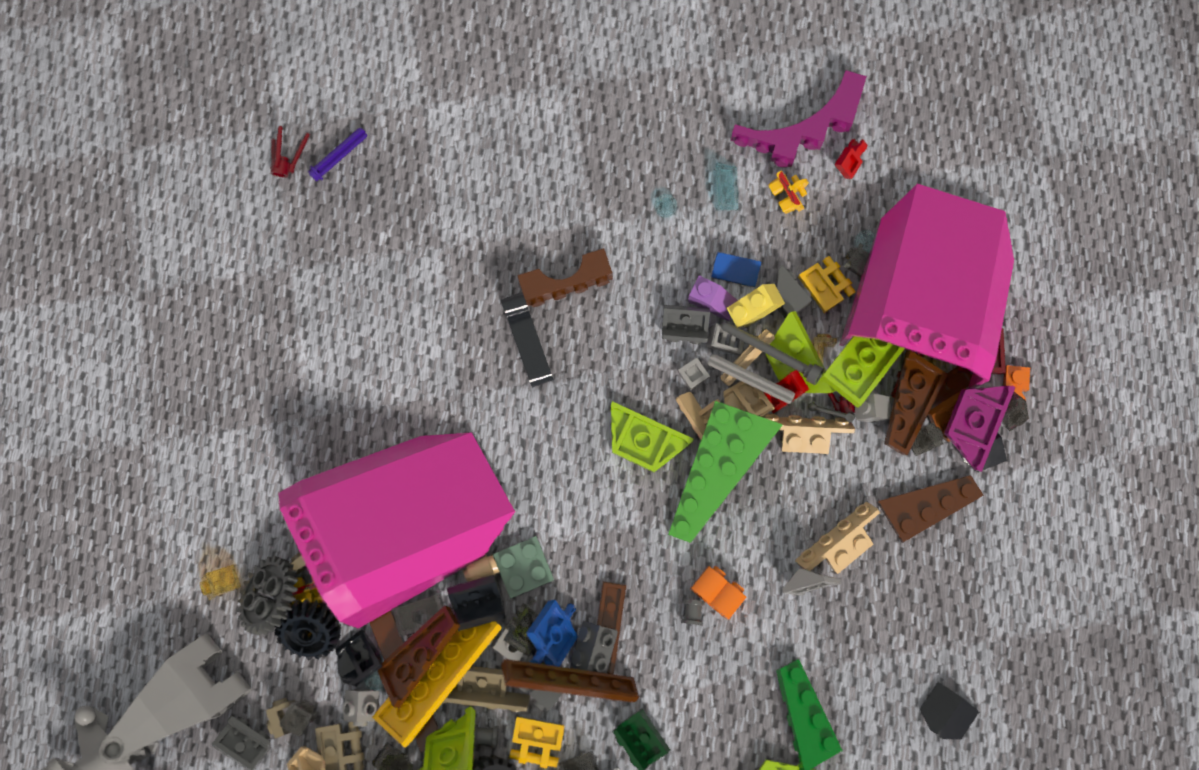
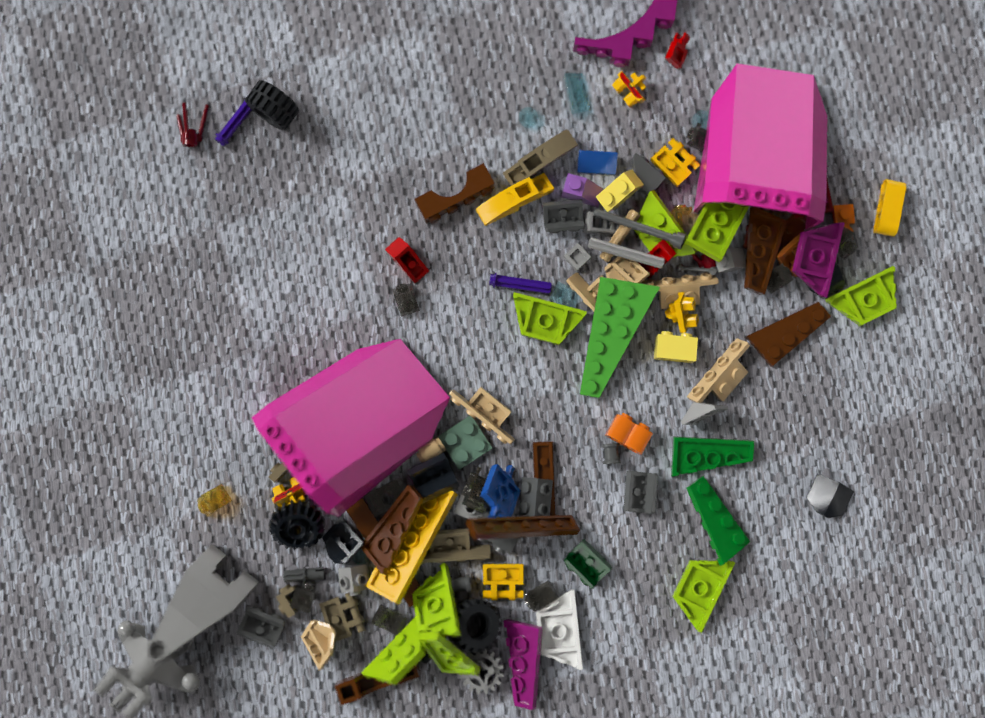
camera: 20 degrees left, 5 degrees up
(259, 611) = (253, 518): dark grey gear -> none
(305, 690) = (304, 574): none -> dark grey axle
(377, 144) = (272, 105): none -> black tyre
(486, 388) = (405, 299): none -> clear smoke bracket
(496, 343) = (407, 259): none -> red slope
(527, 339) = (432, 252): black beam -> none
(556, 533) = (487, 409): none -> tan bracket
(621, 393) = (520, 283): none -> dark purple axle
(633, 292) = (513, 198): none -> yellow slope
(668, 414) = (561, 294): none -> clear light blue tile
(670, 253) = (541, 157): none -> dark tan slope
(720, 665) = (640, 492): none -> dark grey bracket
(791, 499) = (675, 348): none -> light yellow piece
(802, 458) = (679, 312): none -> yellow hips
(802, 632) = (699, 454): none -> green wing
(1030, 481) = (867, 298): none -> lime wing
(1073, 379) = (889, 208): none -> yellow beam

